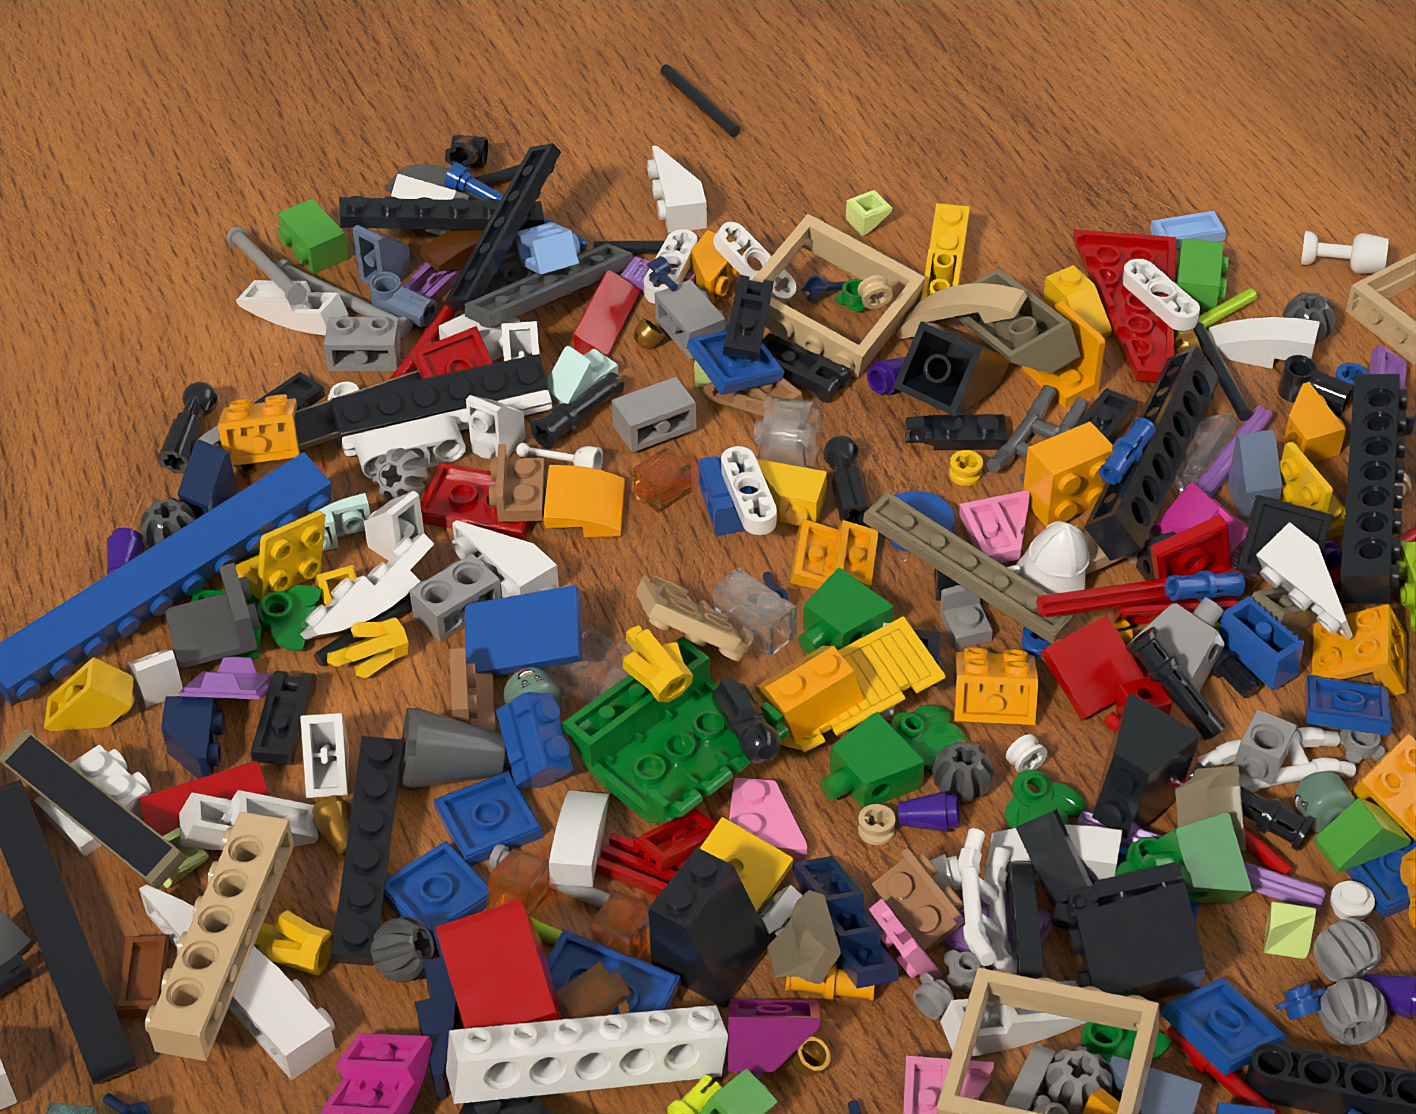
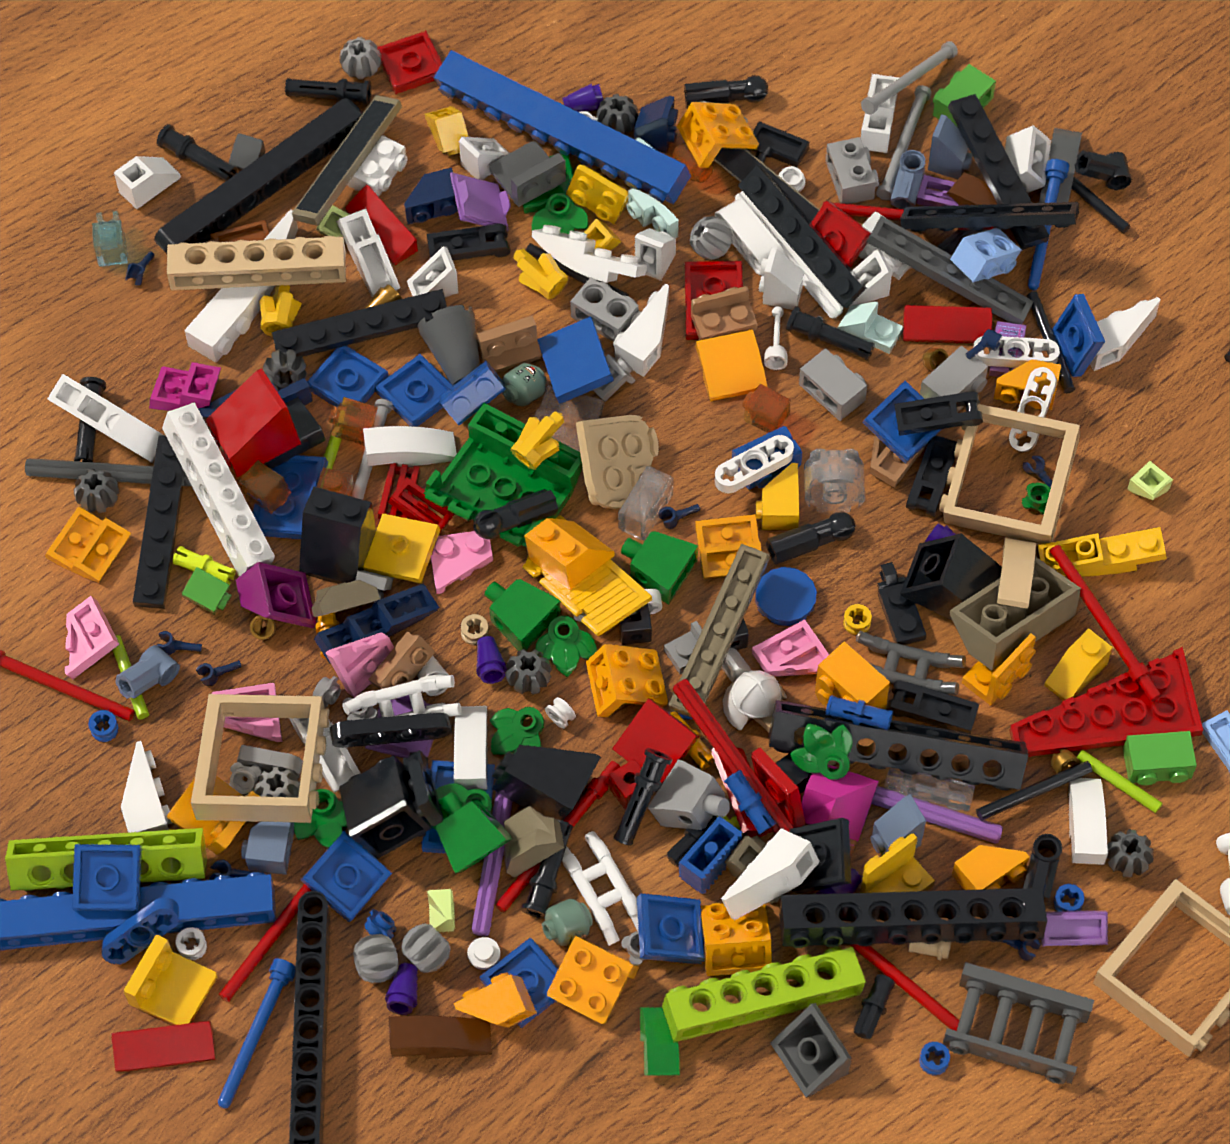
camera: 75 degrees right, 15 degrees up
(674, 205) = (1078, 335): none -> blue tile
(875, 291) = (1007, 499): tan bush -> none
(1053, 856) = (449, 738): black tile -> none
(1100, 260) = (1137, 670): none -> red bar
(1164, 495) = (823, 747): none -> green plate
(1176, 310) = (1108, 739): white beam -> none
(1264, 746) = (596, 876): light grey brick -> none
(1360, 835) = (536, 949): bright green slope -> none

